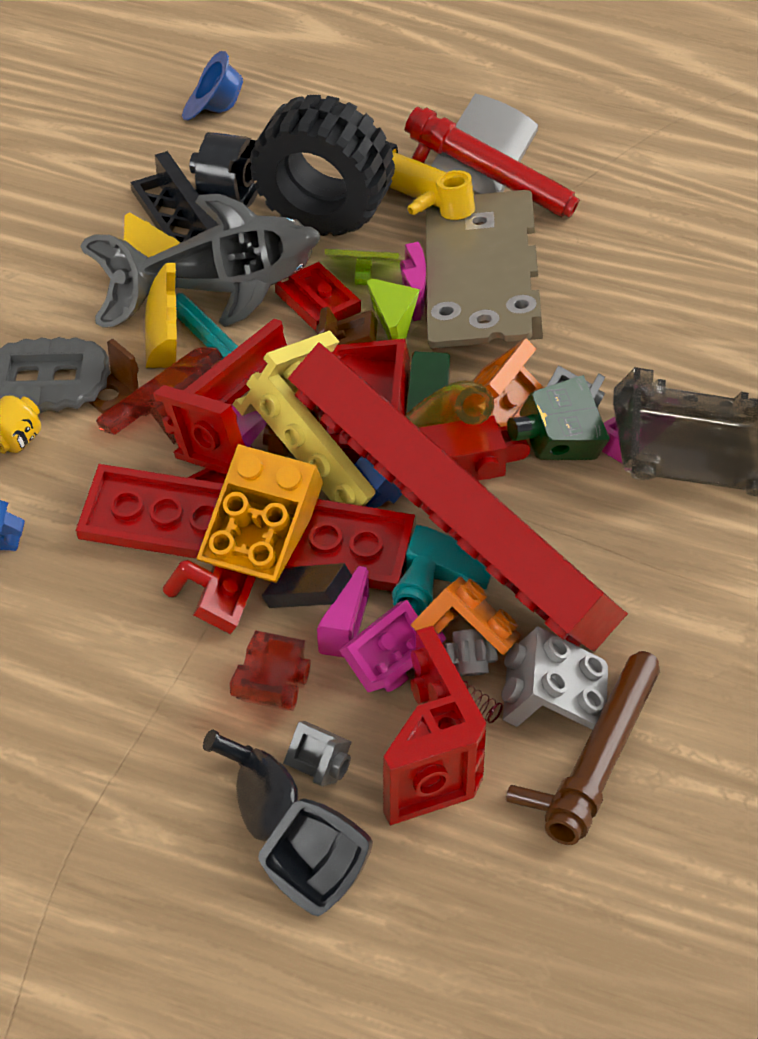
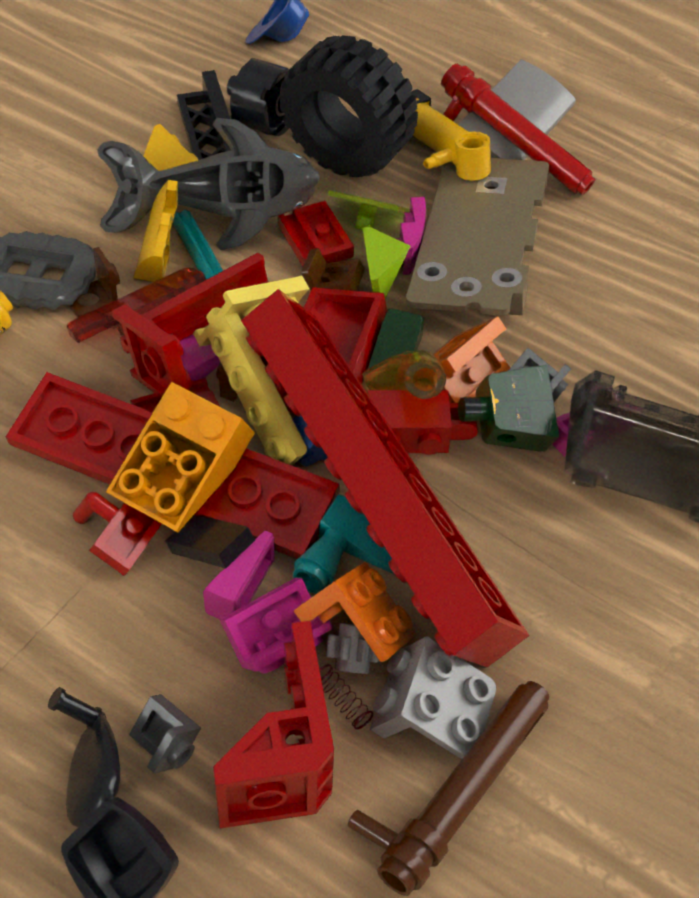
camera: 10 degrees right, 5 degrees up
(271, 671) = (145, 630): clear red cylinder -> none

